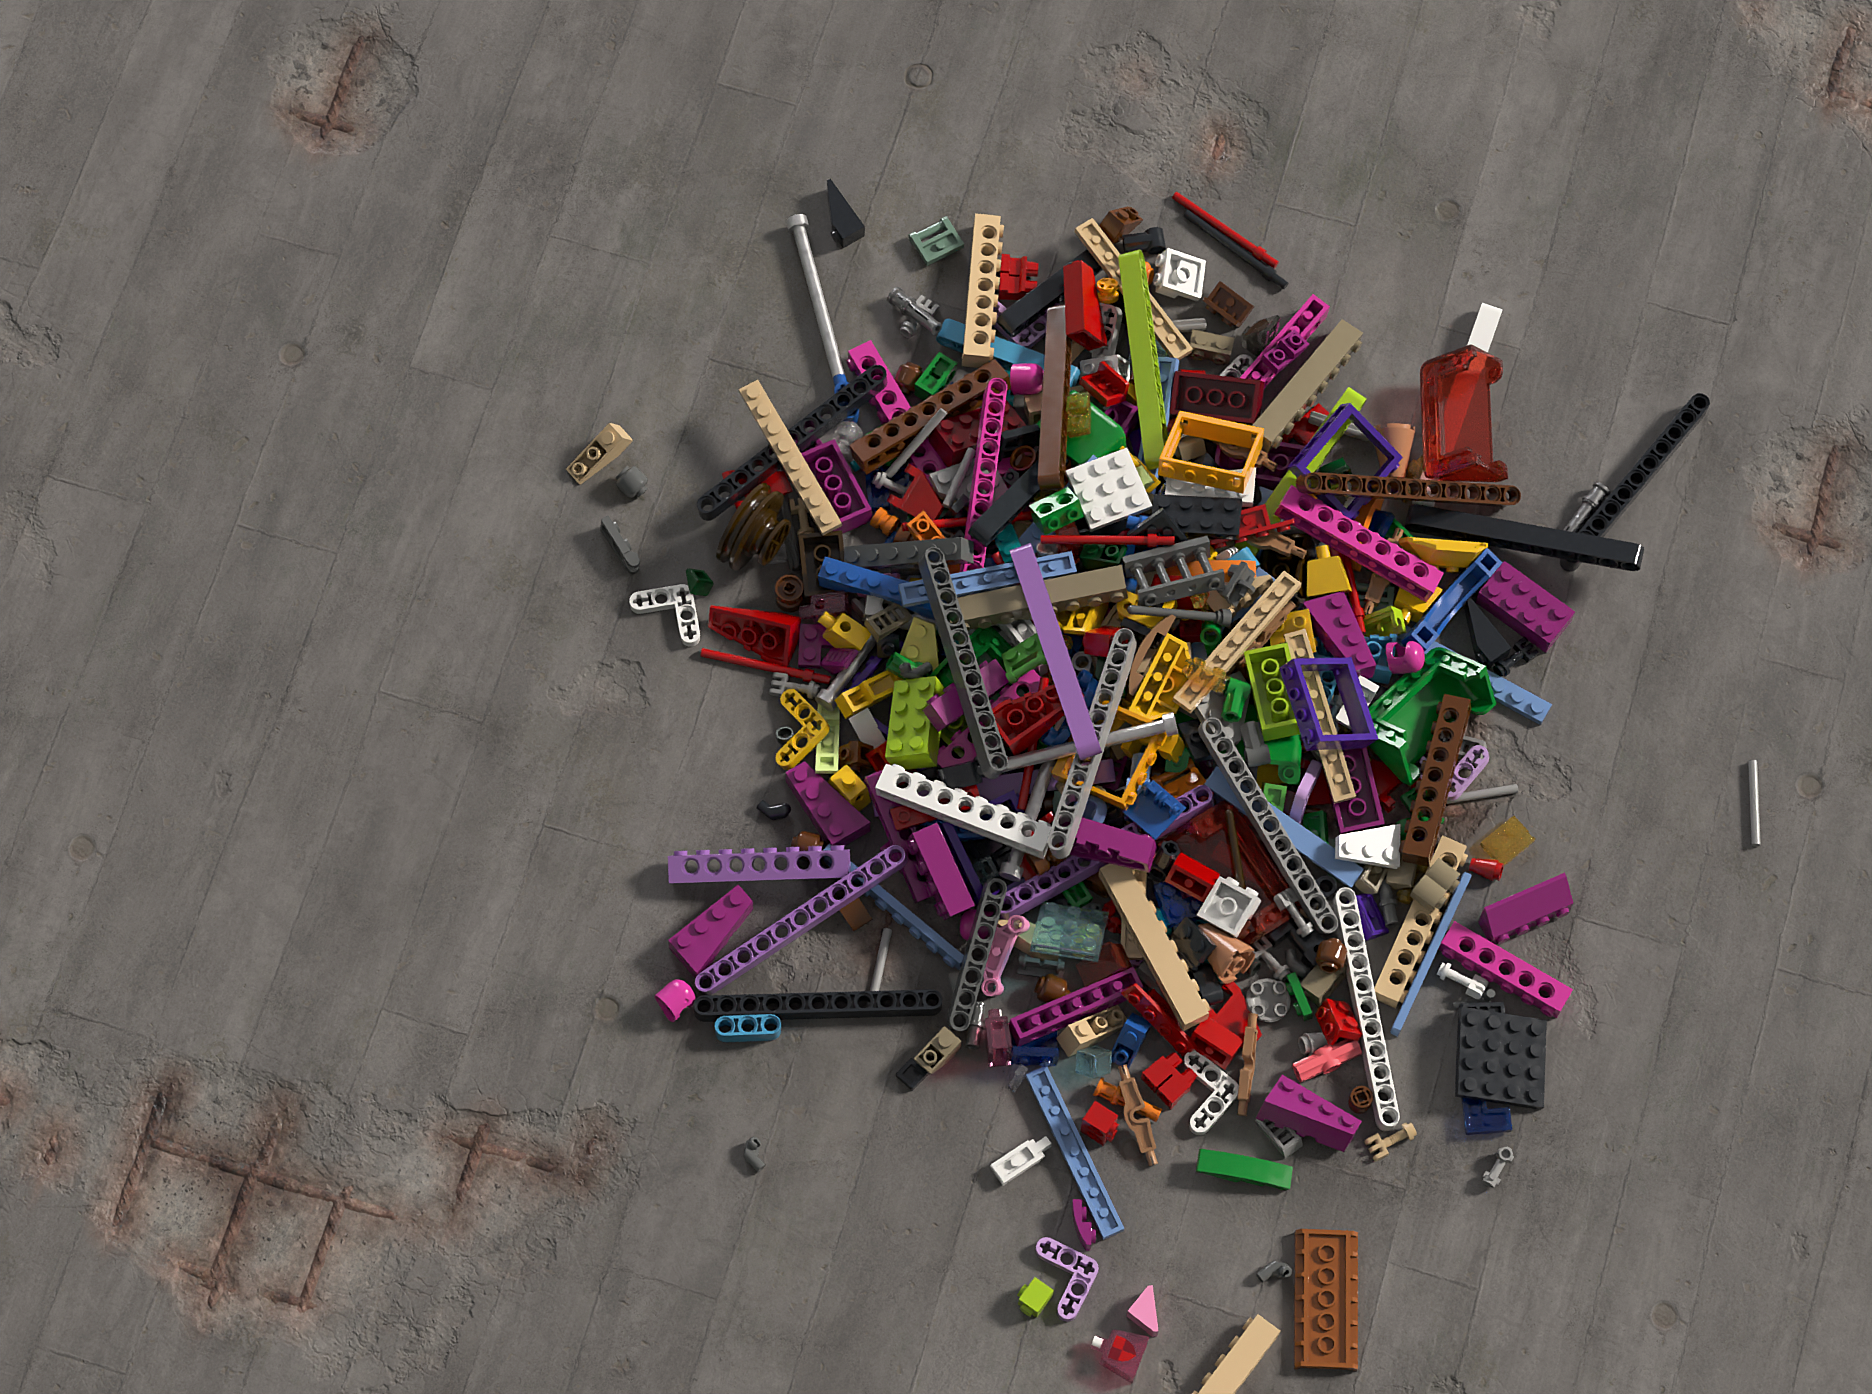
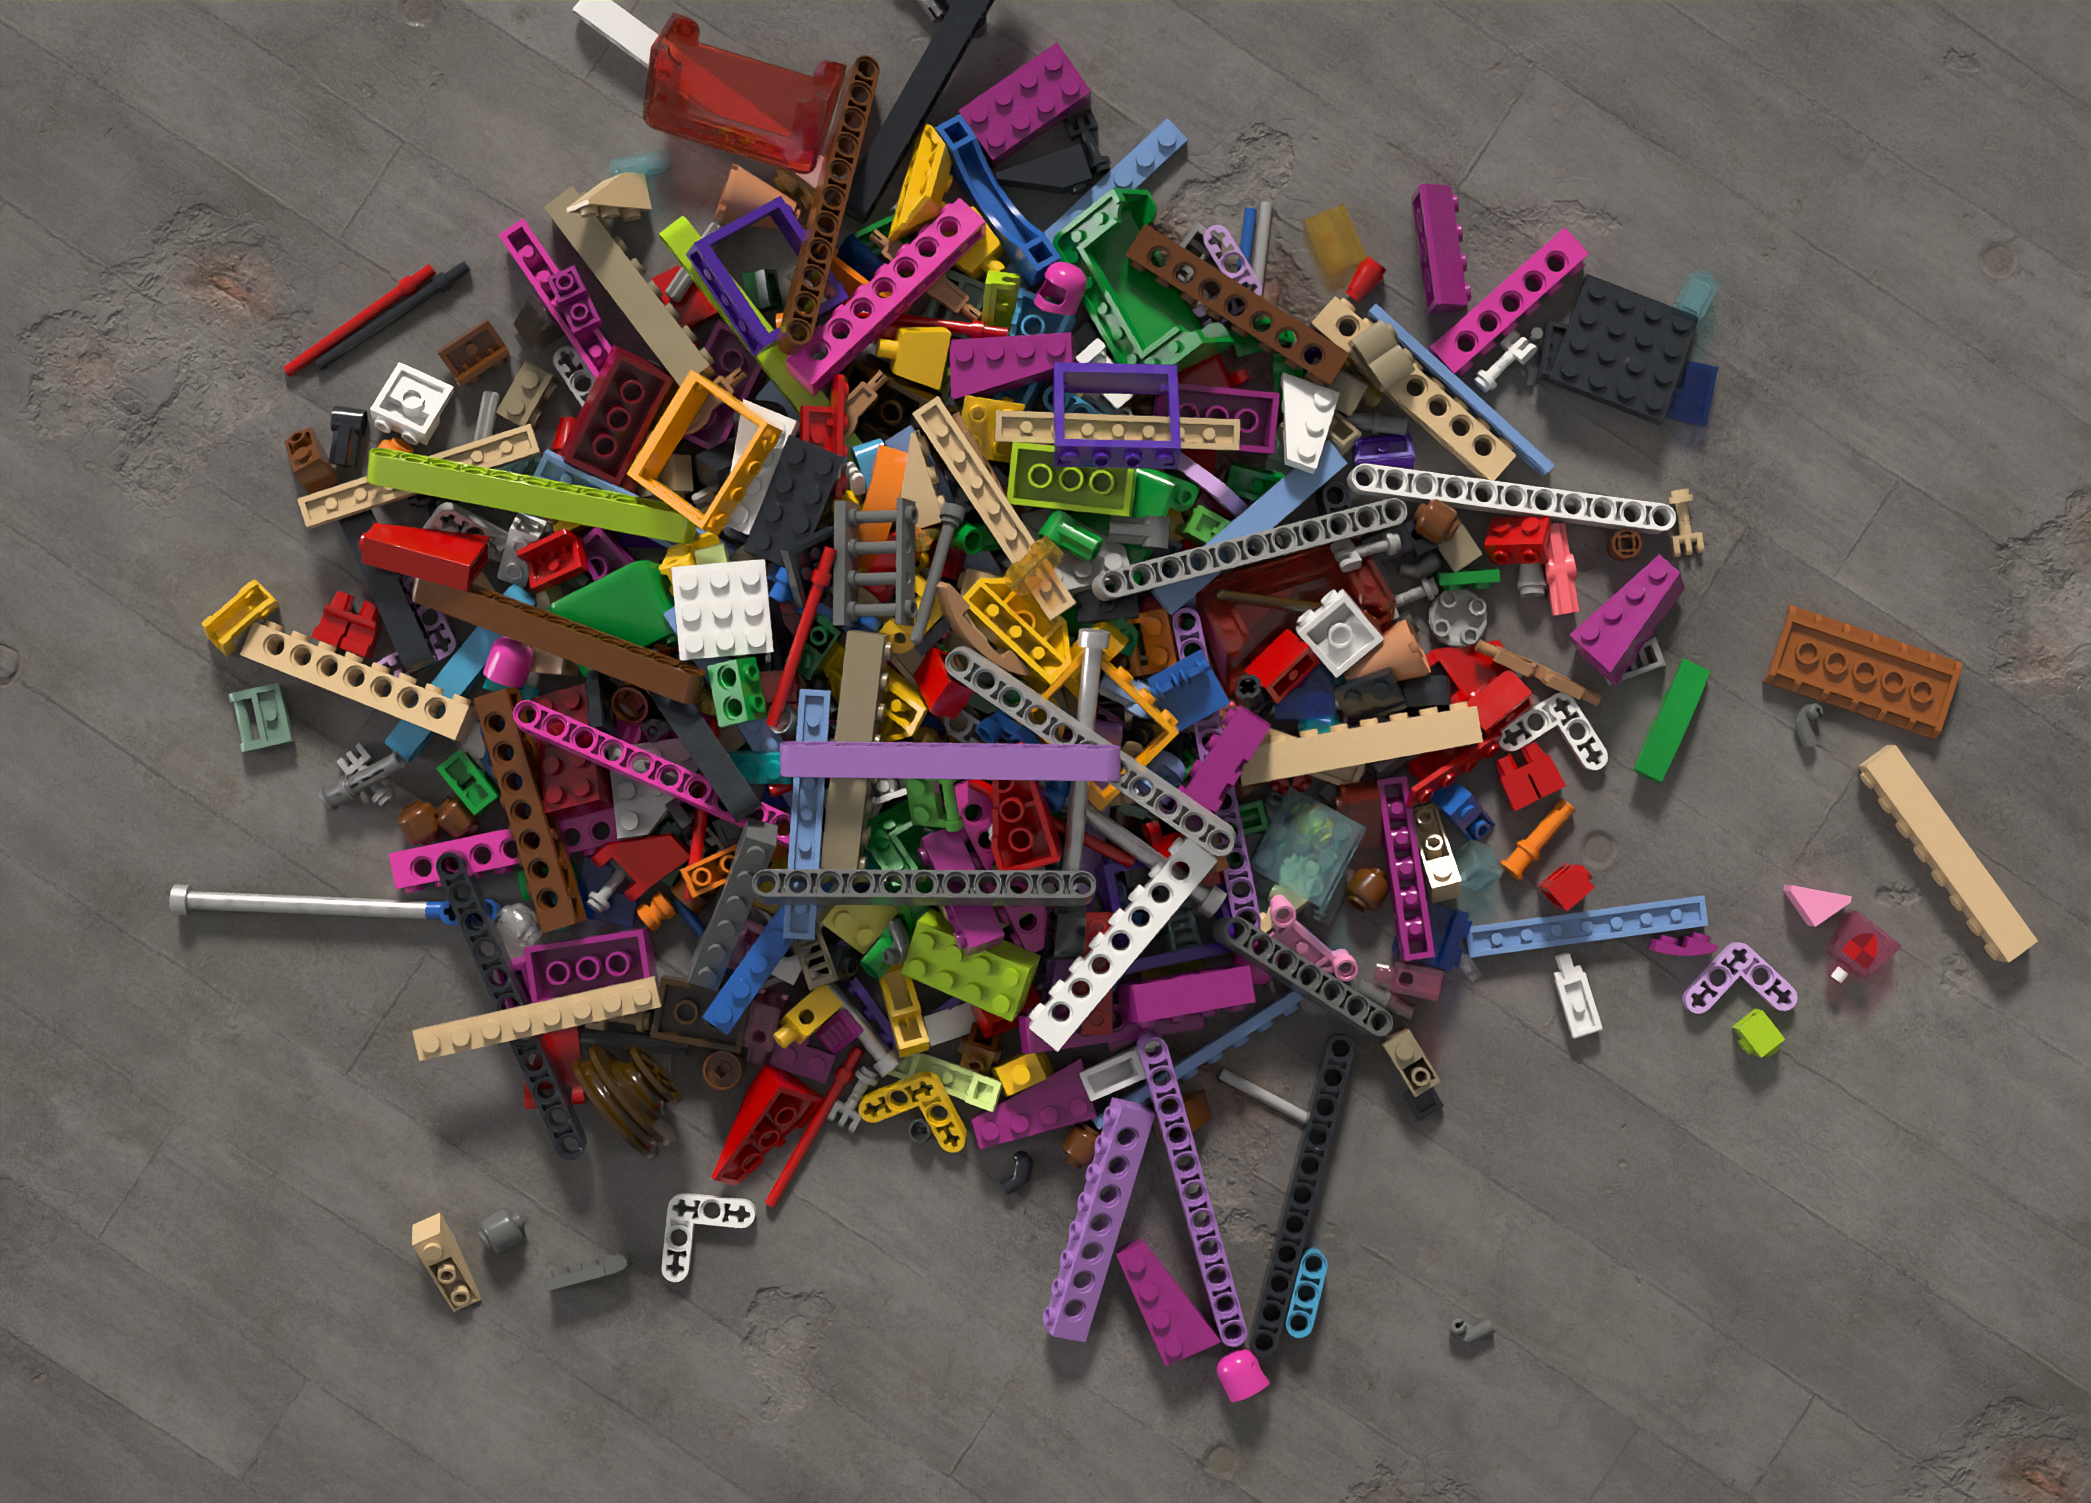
camera: 70 degrees left, 20 degrees up
(698, 582) = (670, 1182): dark green slope -> none
(845, 223) = (196, 836): black slope -> none
(865, 848) = (1115, 1072): none -> white slope
(896, 355) = (419, 823): none -> reddish brown head
(922, 435) = (564, 841): light grey bar -> none
(959, 478) = (637, 801): light grey bar -> none
(1001, 204) = (237, 615): none -> yellow piece
(1079, 414) = (593, 611): clear yellow slope -> none
(1107, 290) = (412, 511): light orange wheel -> none
(1133, 1103) = (1580, 833): medium nougat piece -> none
(1239, 584) = (915, 479): dark grey hips -> none
(1366, 364) = (615, 197): none -> tan slope
(1393, 375) = (644, 163): none -> clear light blue slope
(1485, 782) = (1247, 236): none -> blue bar
(1504, 1157) = (1748, 389): light grey bar -> none
(1559, 1099) = (1696, 293): none -> clear light blue brick

